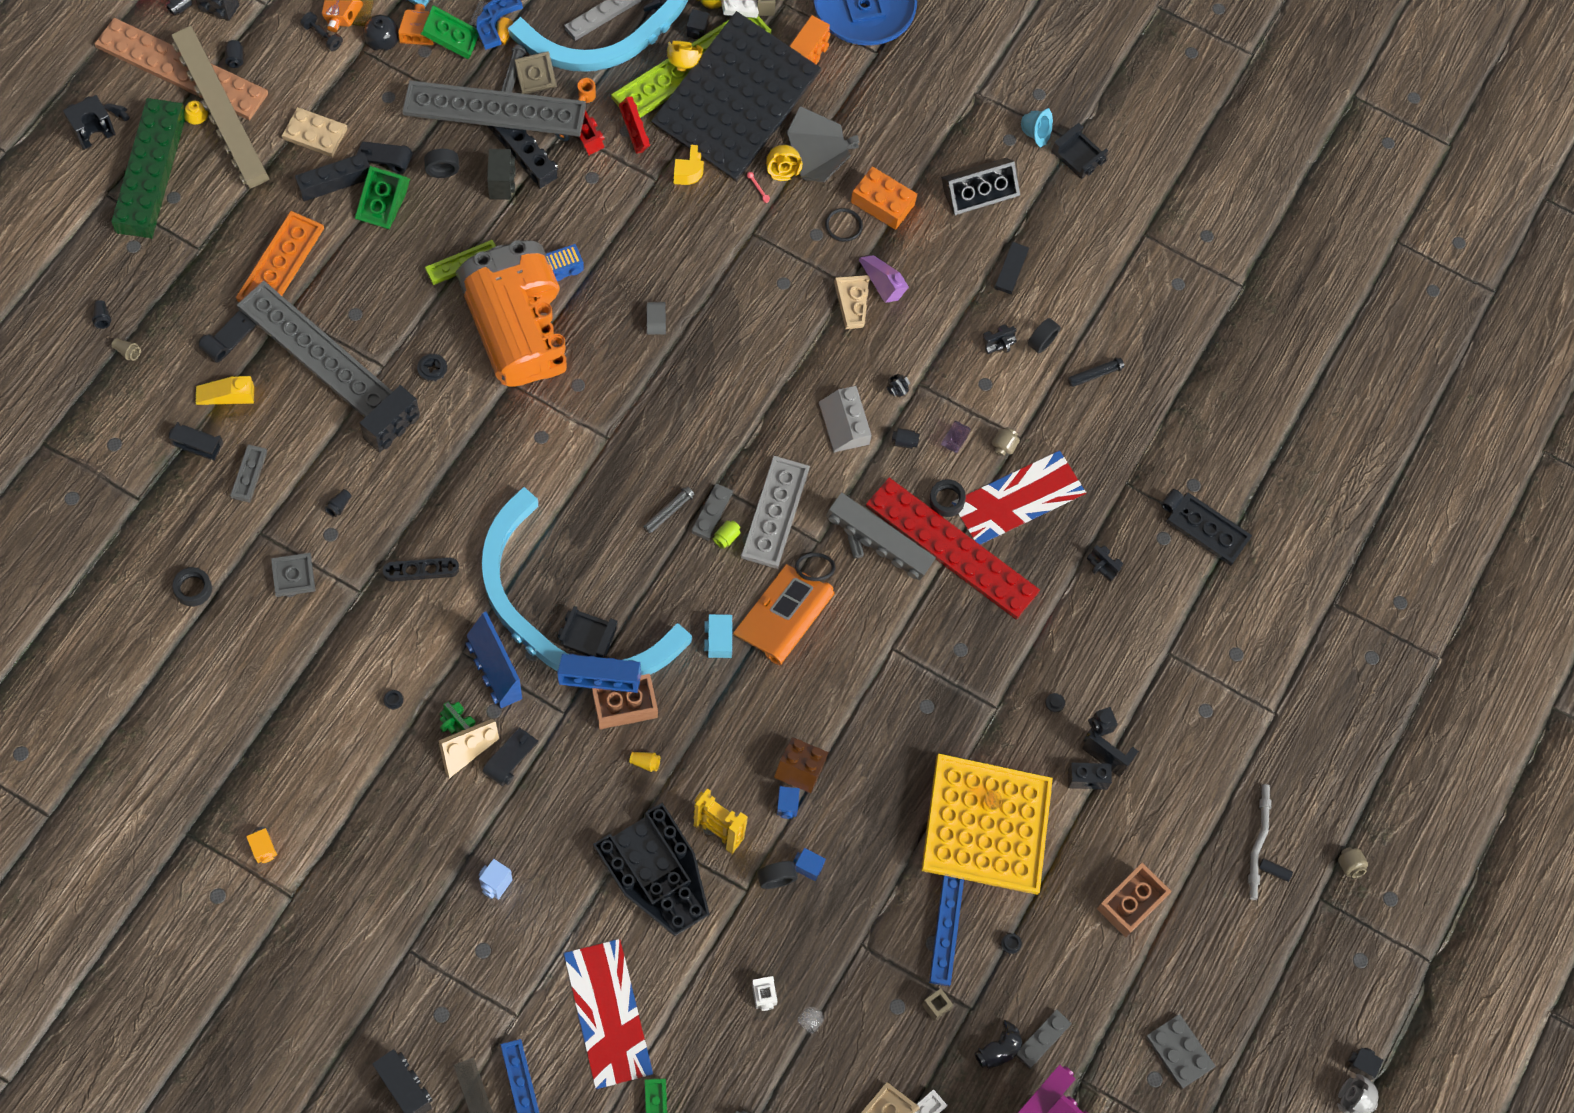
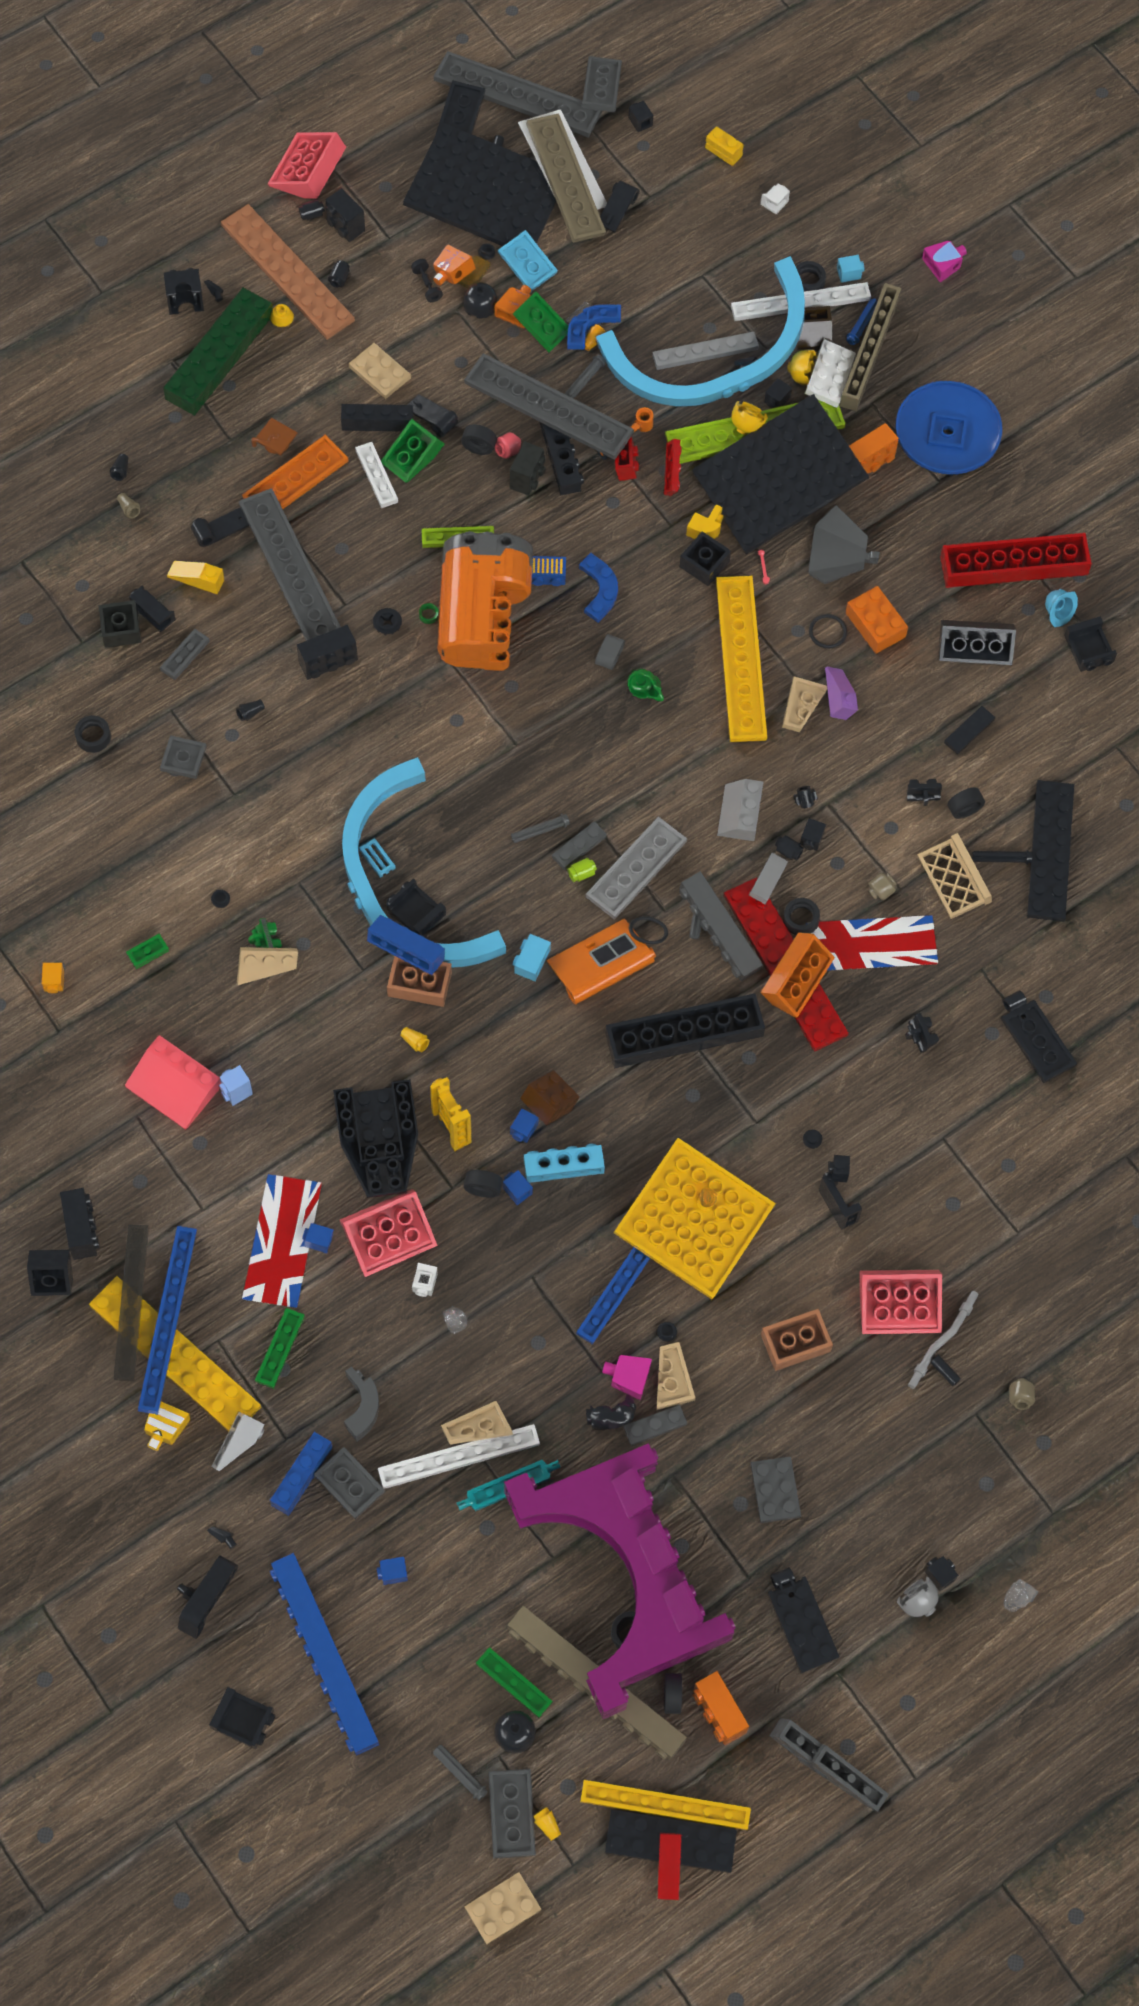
camera: 30 degrees right, 0 degrees up
(171, 467) = (119, 623): none -> pearl dark grey brick
(220, 107) = (304, 318): dark tan brick -> none
(242, 230) = (275, 437): none -> dark orange hat
(345, 781) = (147, 951): none -> green plate
(357, 231) = (376, 475): none -> white plate
(421, 572) = (297, 792): black beam -> none
(430, 902) = (173, 1082): none -> coral slope
(468, 338) = (429, 606): none -> green piece
(470, 159) = (508, 445): none -> coral head
(494, 662) = (320, 900): blue slope -> none
(503, 762) = (289, 990): black door -> none
(535, 73) = (603, 387): dark tan tile -> none
(545, 601) = (384, 869): none -> medium azure tile
(622, 255) = (607, 587): none -> blue plate
(643, 996) = (318, 1237): none -> blue brick
(704, 198) = (705, 558): none -> black brick
(704, 337) = (645, 685): none -> green hair
(708, 961) = (388, 1232): none -> coral slope
(779, 279) = (741, 659): none -> yellow plate
(783, 162) = (796, 552): yellow cylinder -> none
(819, 842) = (555, 1170): none -> medium azure brick
(893, 649) = (685, 1030): none -> black brick
(901, 474) = (768, 878): none -> light grey tile
(921, 417) = (812, 834): none -> black brick
(937, 1004) = (572, 1353): dark tan brick -> none
(956, 437) = (837, 865): clear purple bracket -> none
(972, 553) = (798, 974): none -> orange slope
(980, 99) = (1015, 560): none -> red brick
(998, 1001) = (629, 1374): none -> dark pink torso
(1038, 985) = (673, 1378): none -> tan wing
(1072, 393) = (969, 868): none -> tan fence
(1089, 776) = (811, 1215): black brick -> none
(1135, 349) = (1050, 851): none -> black plate
(1206, 822) = (901, 1301): none -> coral slope
(1442, 1054) = (1019, 1595): none -> clear rock

